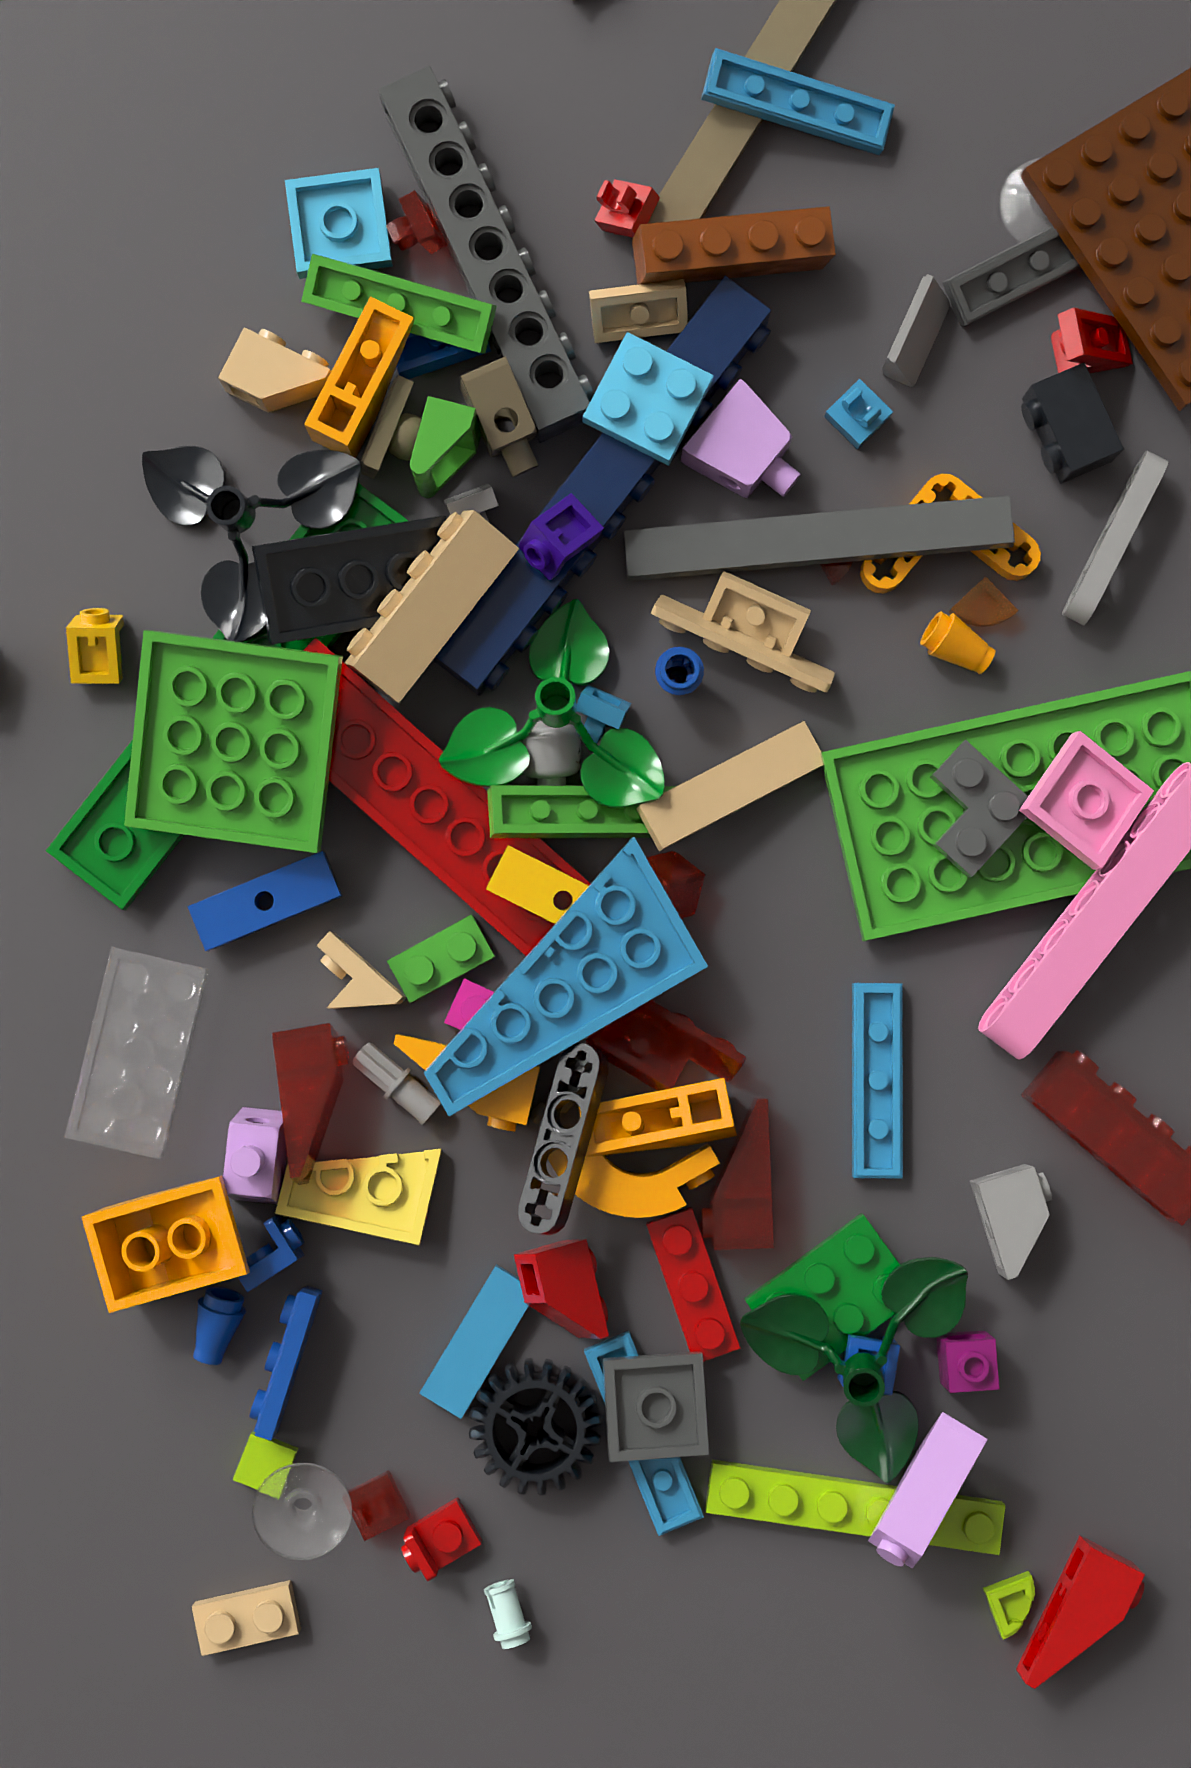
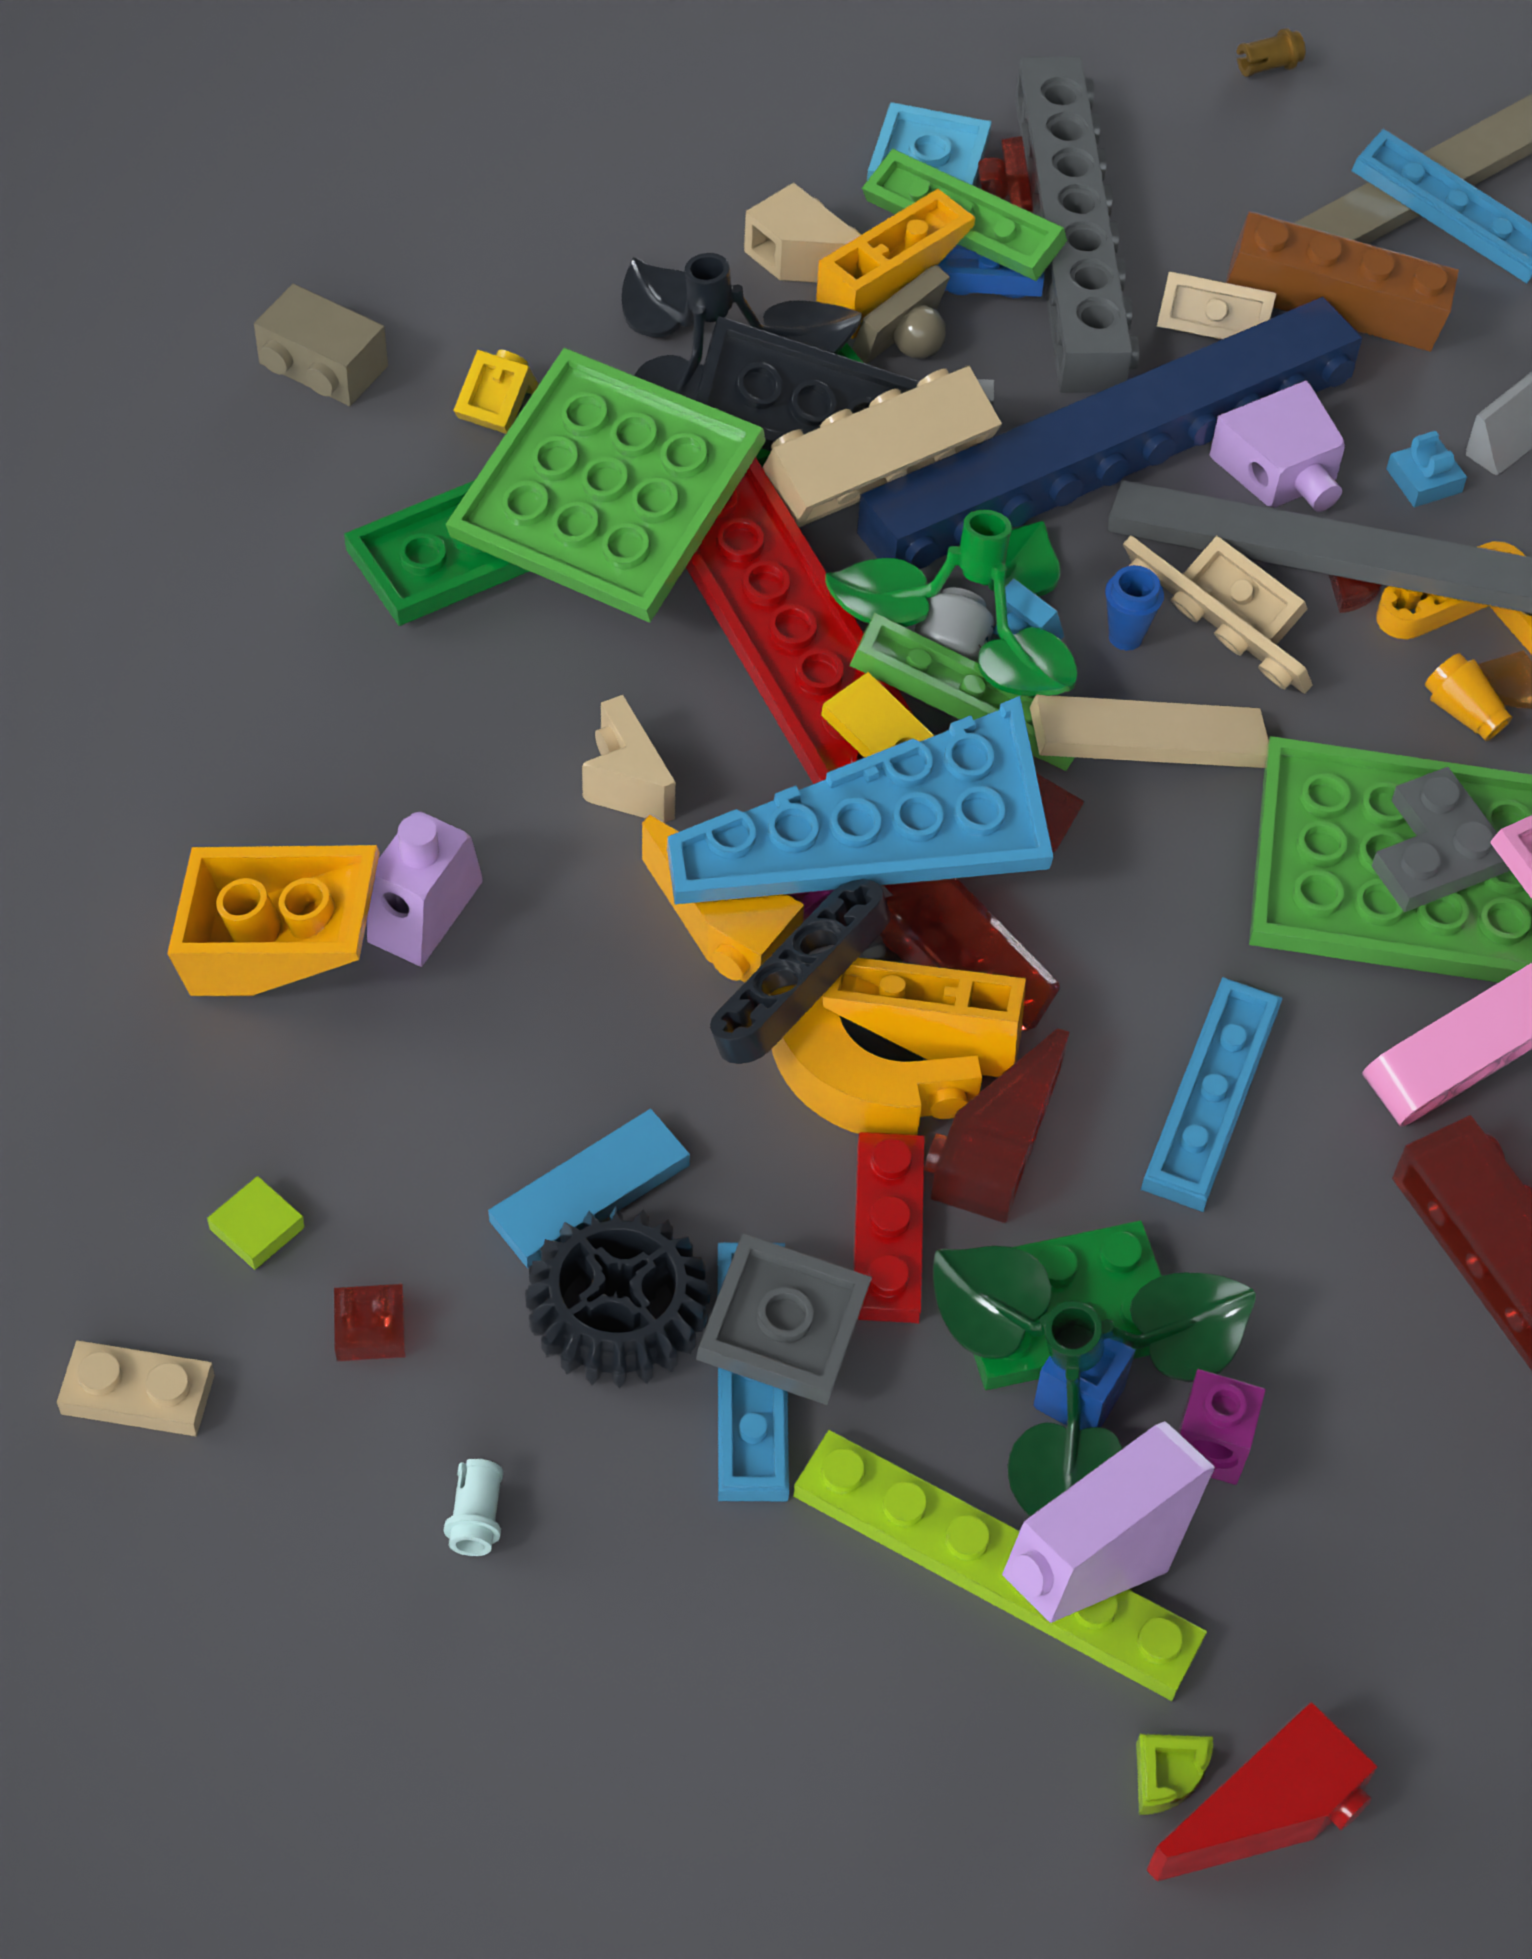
camera: 20 degrees right, 30 degrees down
(136, 1053) = (338, 750): clear plate -> none
(217, 1322) = (282, 1044): blue cone -> none
(237, 910) = (560, 663): blue tile -> none
(266, 1261) = (386, 1002): blue bracket -> none
(284, 1361) = (344, 1112): blue tile -> none
(299, 1532) = (270, 1247): clear dish -> none
(308, 1084) = (518, 842): clear red slope -> none
(368, 1195) = (533, 986): light yellow wing -> none
(396, 1082) = (624, 887): light grey axle -> none
(439, 1539) = (431, 1388): red bracket -> none
(441, 959) = (721, 786): bright green plate -> none
(443, 444) = (974, 321): bright green tile -> none
(496, 396) = (1030, 348): dark tan torso -> none
(559, 536) = (1049, 424): dark purple bracket -> none
(563, 1286) = (724, 1150): red slope -> none
(625, 207) = (1229, 220): red tile -> none
(647, 398) = (1197, 359): medium azure plate -> none
(1012, 1214) = (1336, 1281): light grey slope -> none

